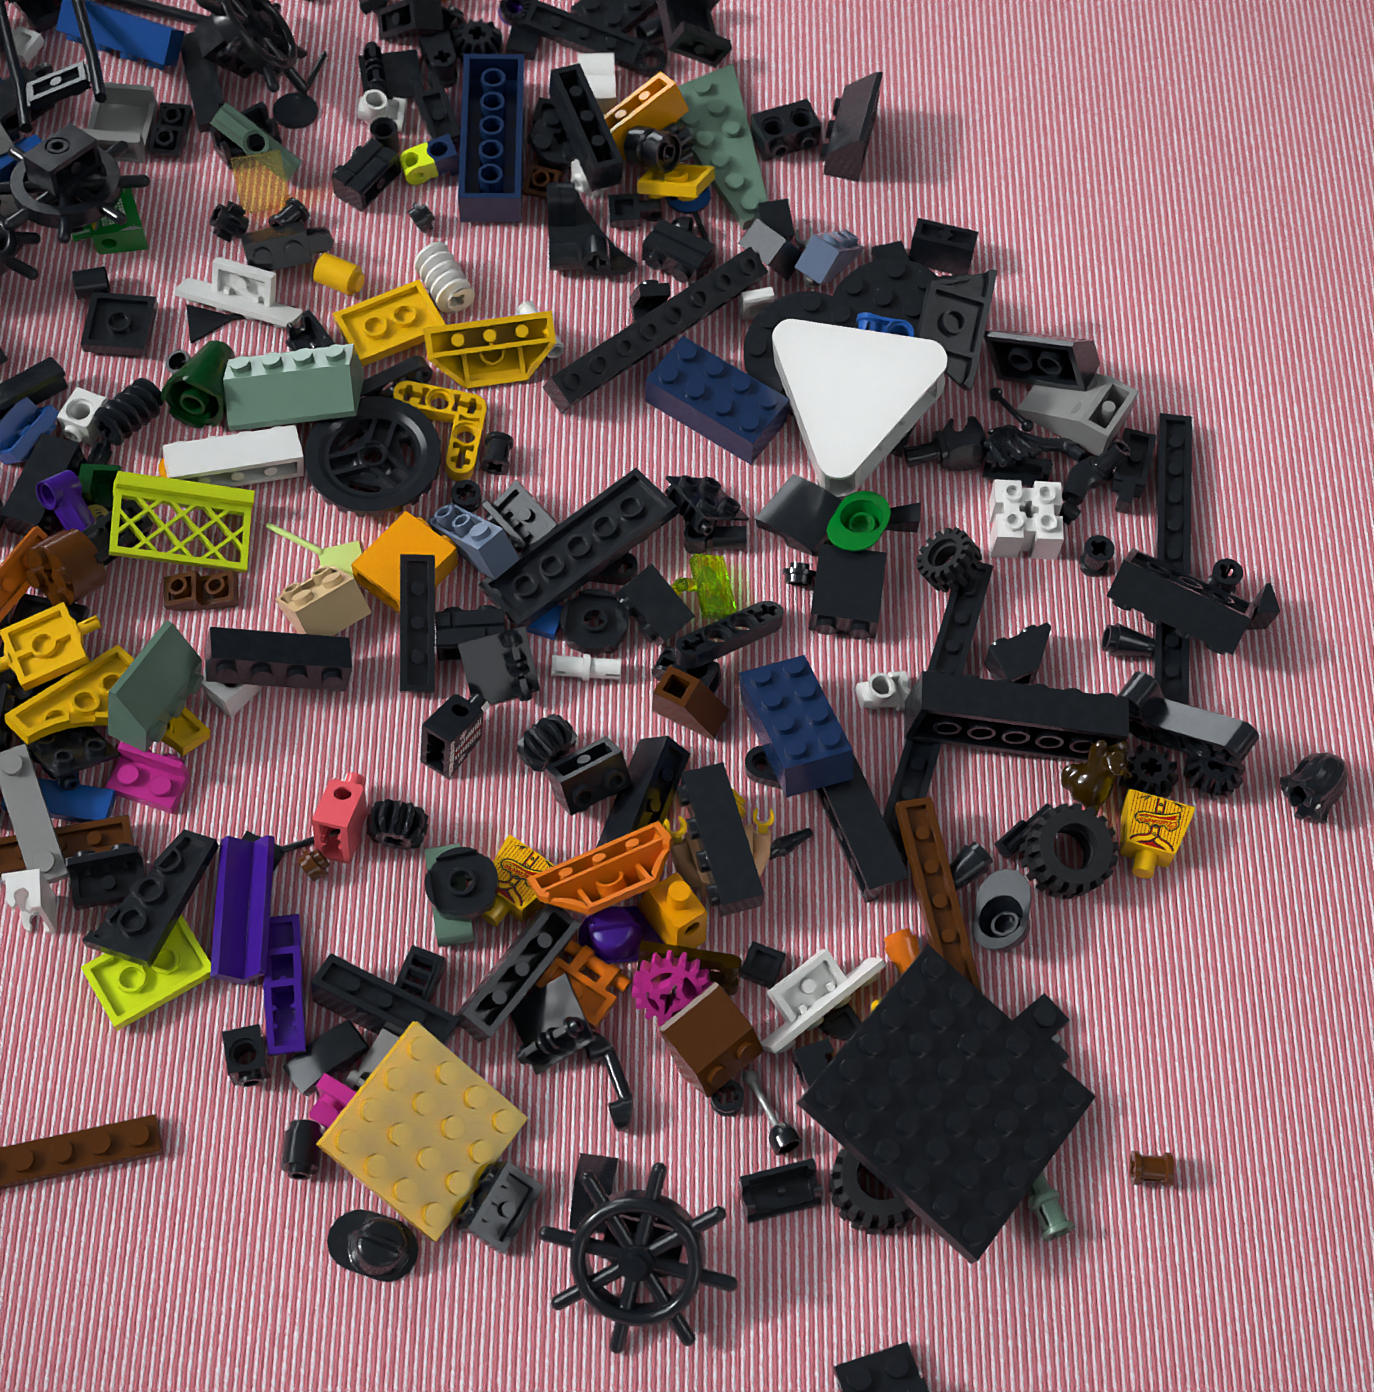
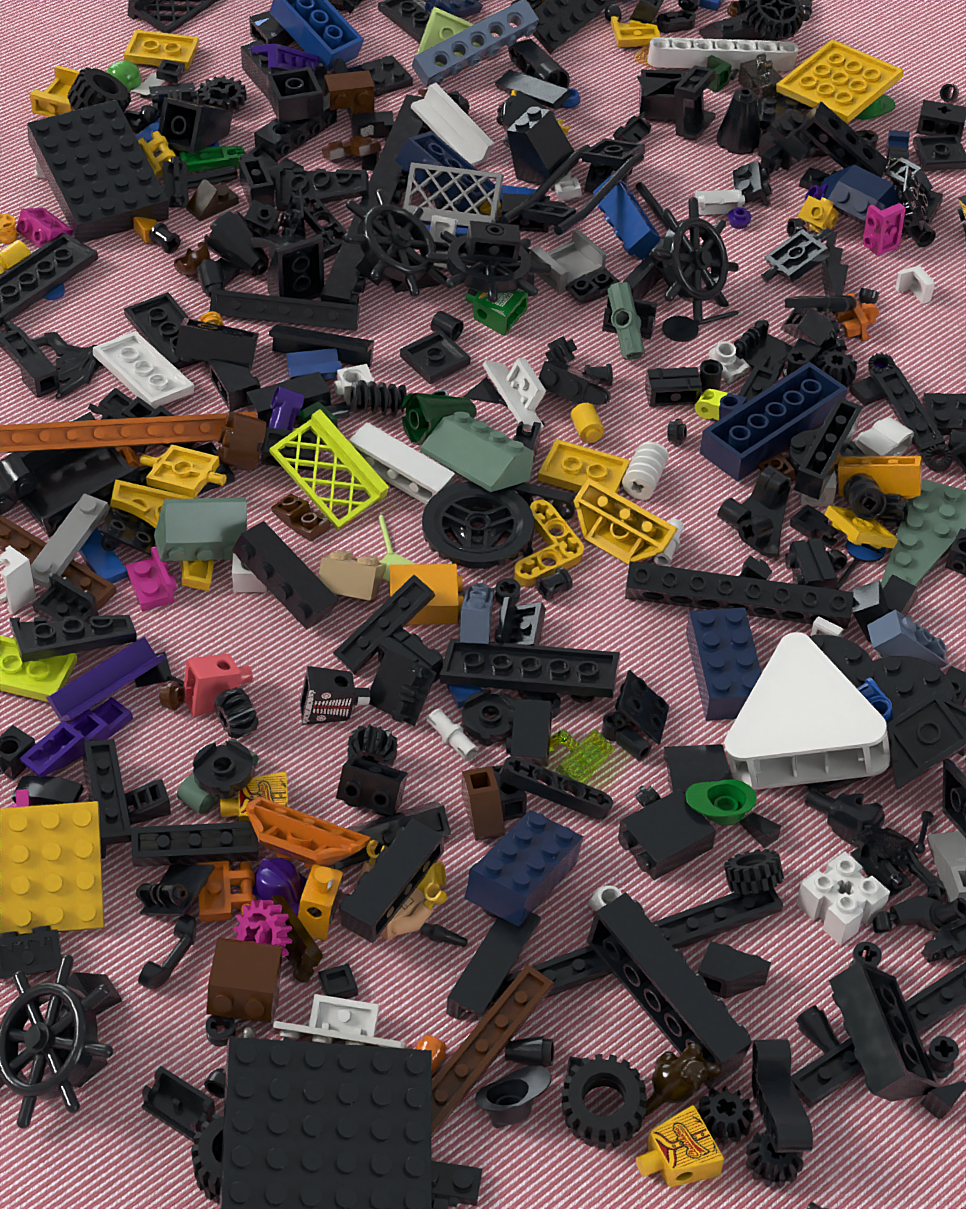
camera: 50 degrees right, 15 degrees down
(260, 181) = (603, 342): clear yellow piece -> none

